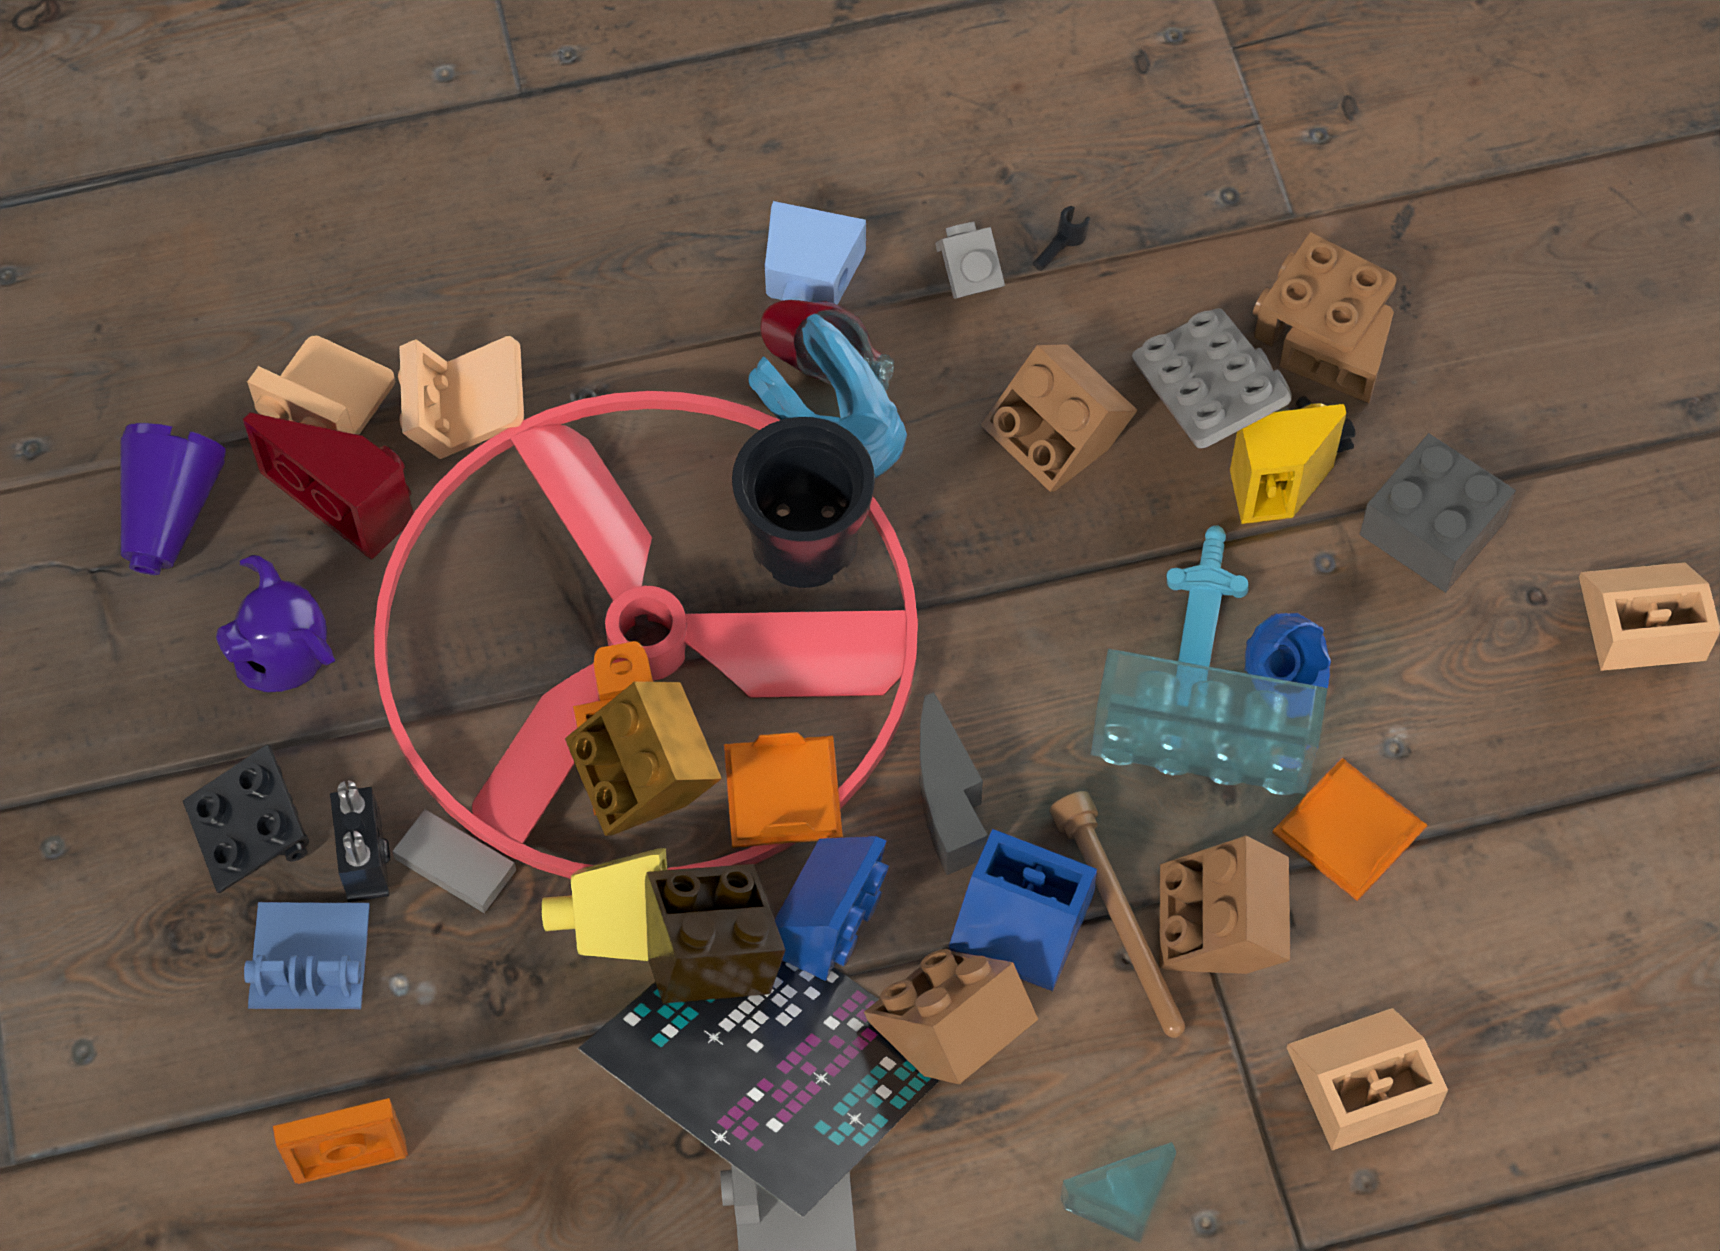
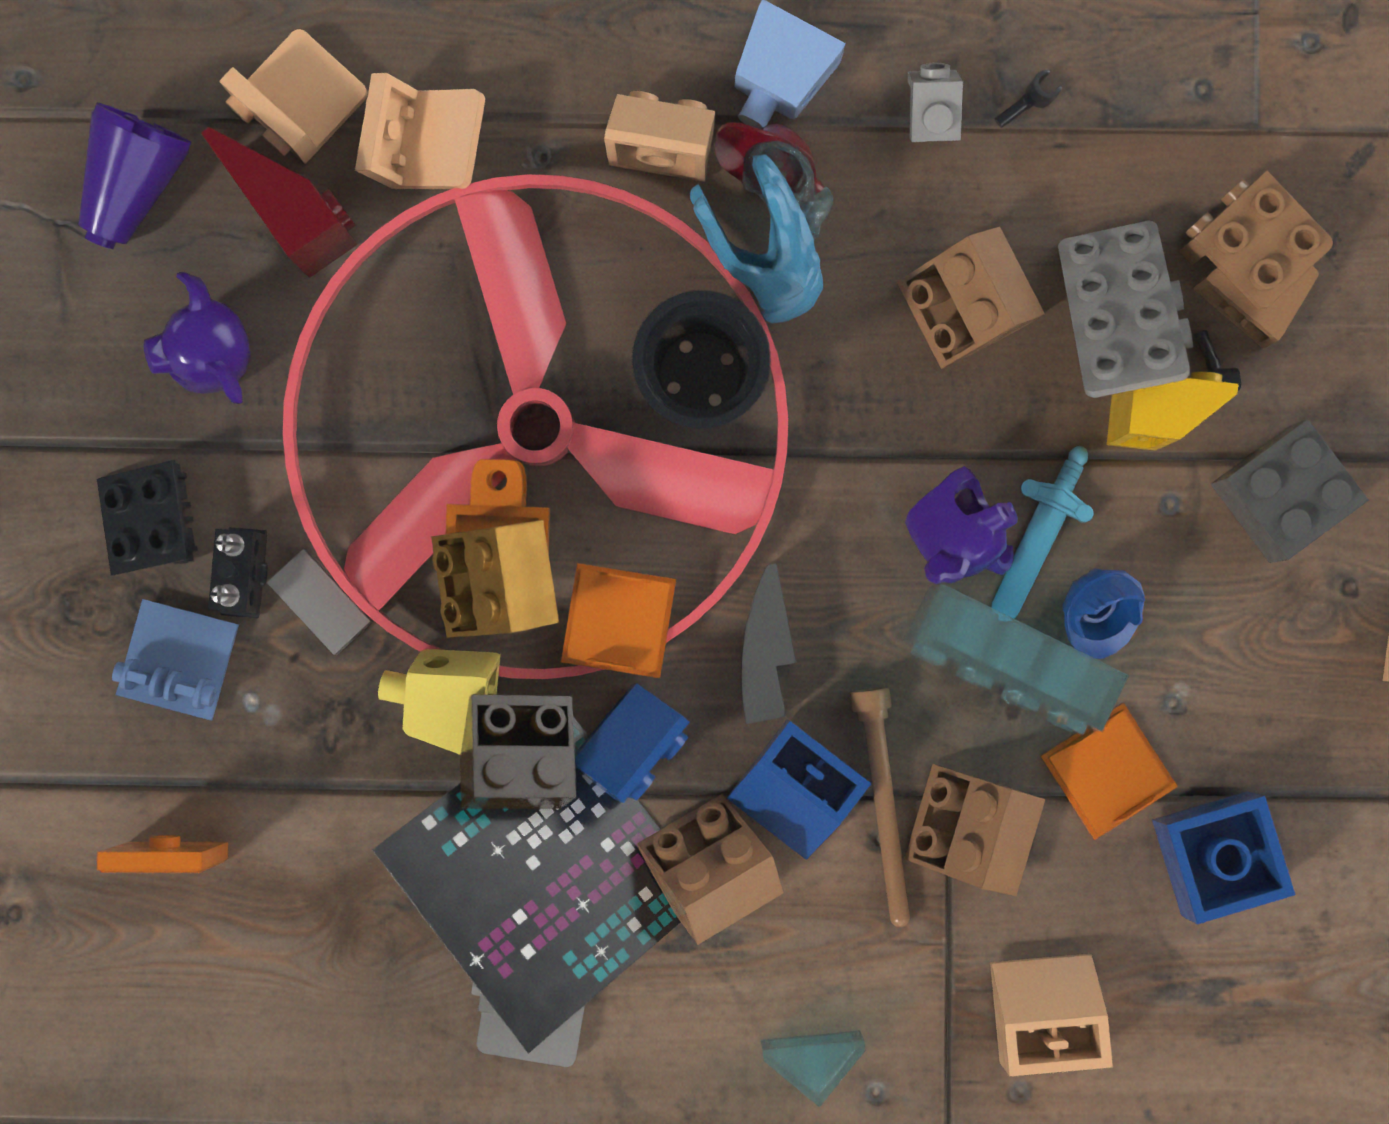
camera: 15 degrees right, 25 degrees up
(704, 346) = (660, 135): none -> light nougat slope
(1115, 613) = (961, 532): none -> dark purple piece
(1494, 865) = (1223, 857): none -> blue brick

